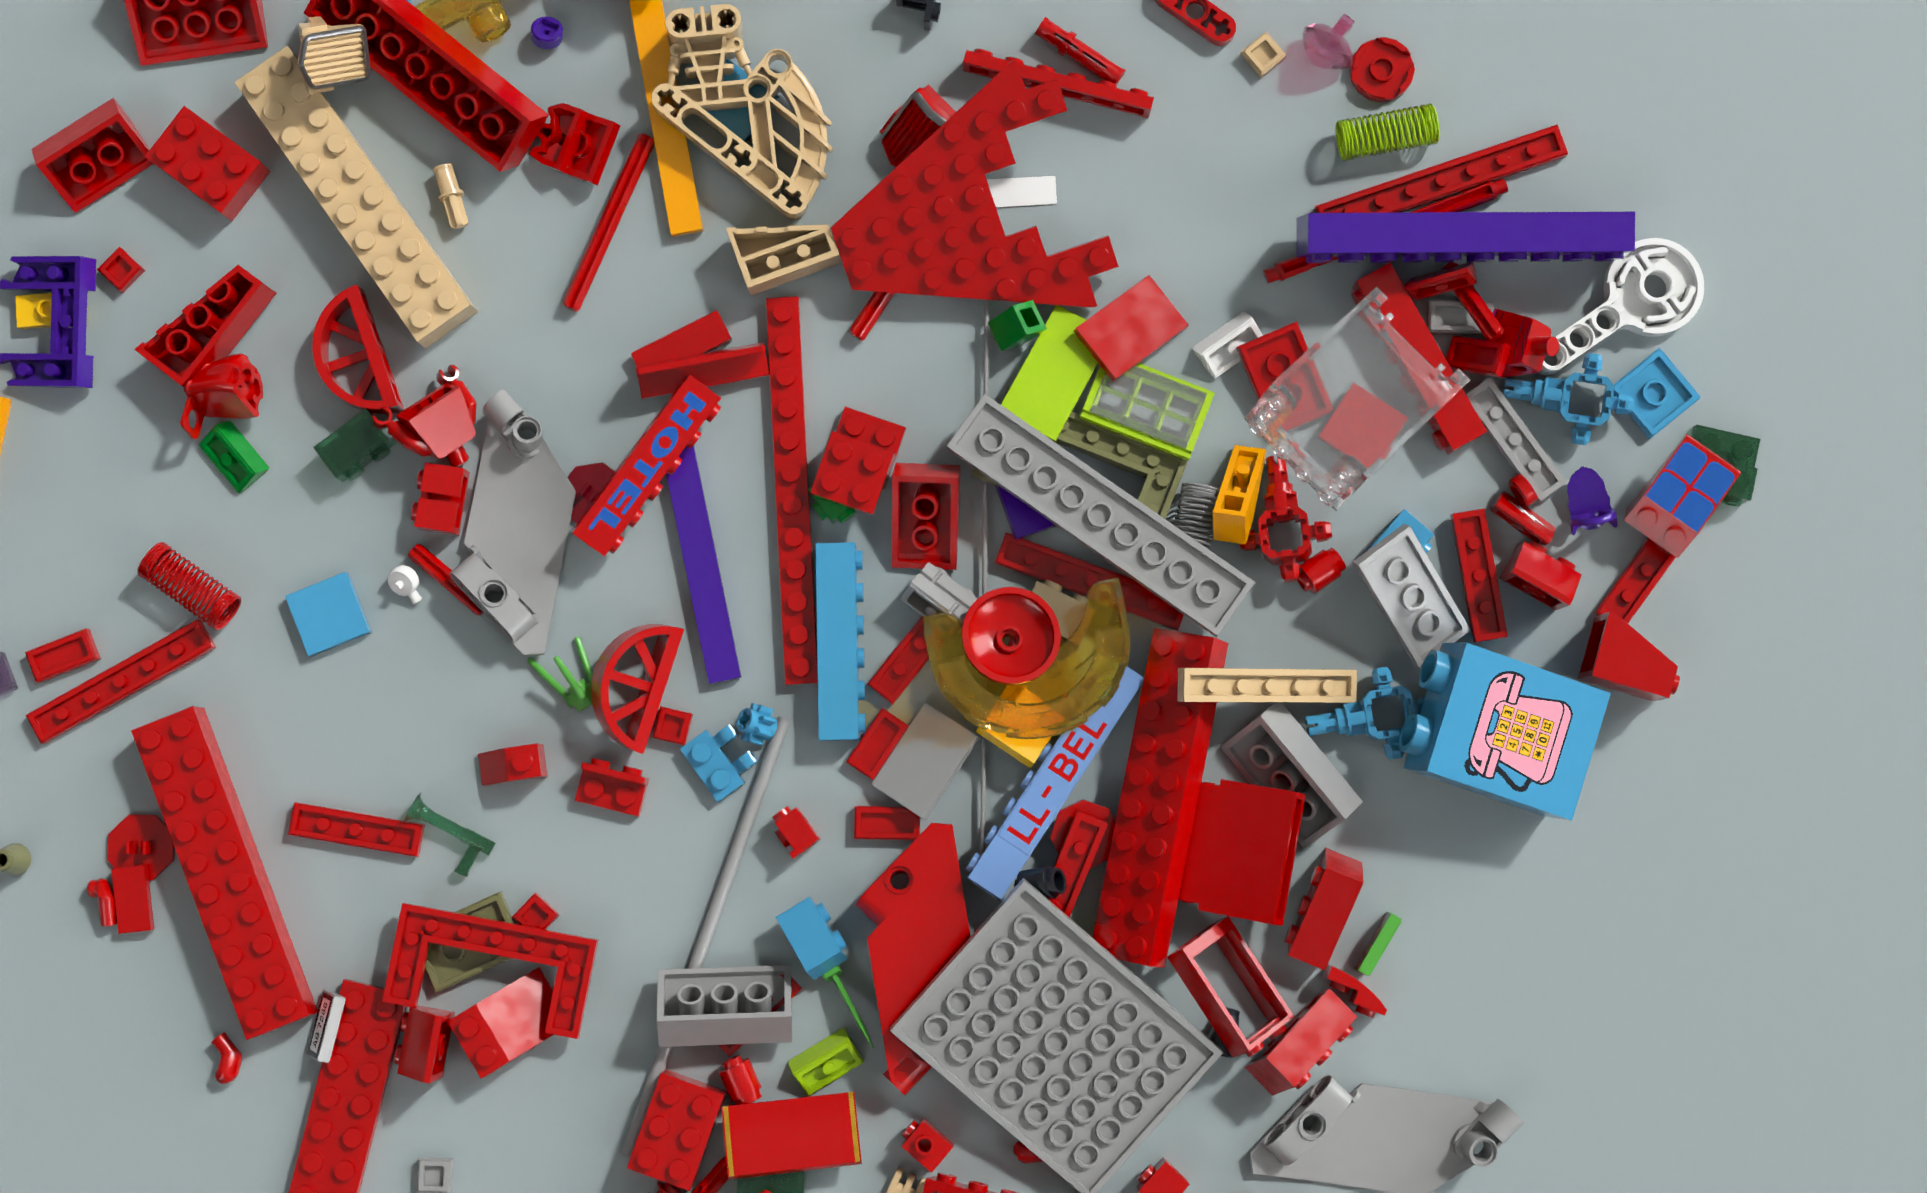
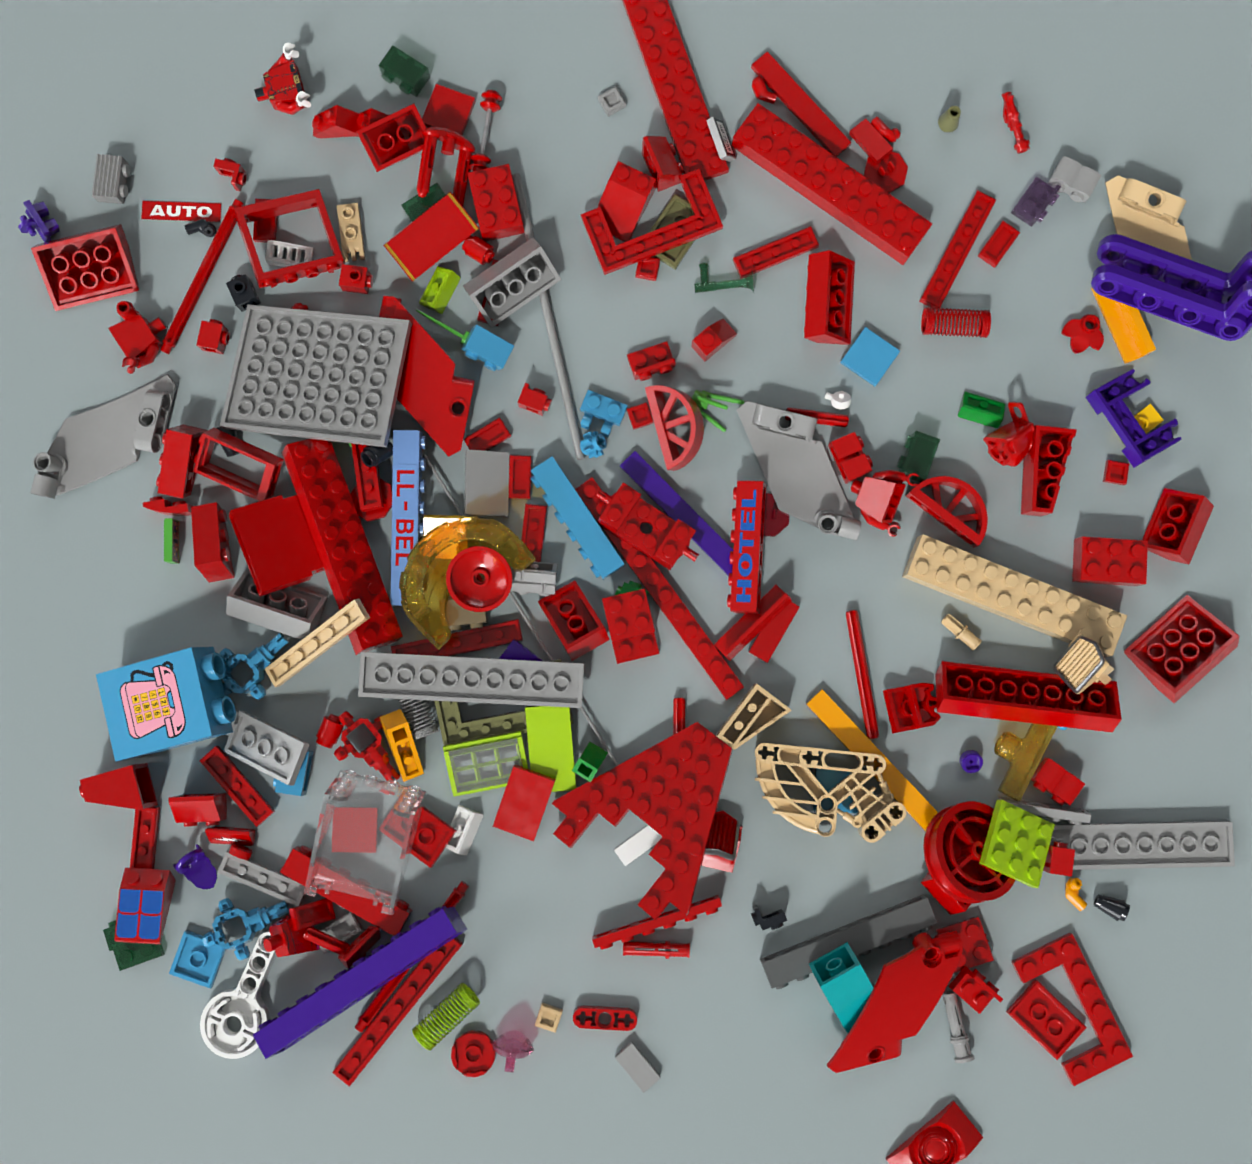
camera: 140 degrees right, 0 degrees up
(41, 468) = (1081, 335): none -> red plate
(190, 1008) = (801, 104): none -> red tile
(329, 722) = (829, 298): none -> red slope
(740, 540) = (626, 513): none -> red brick

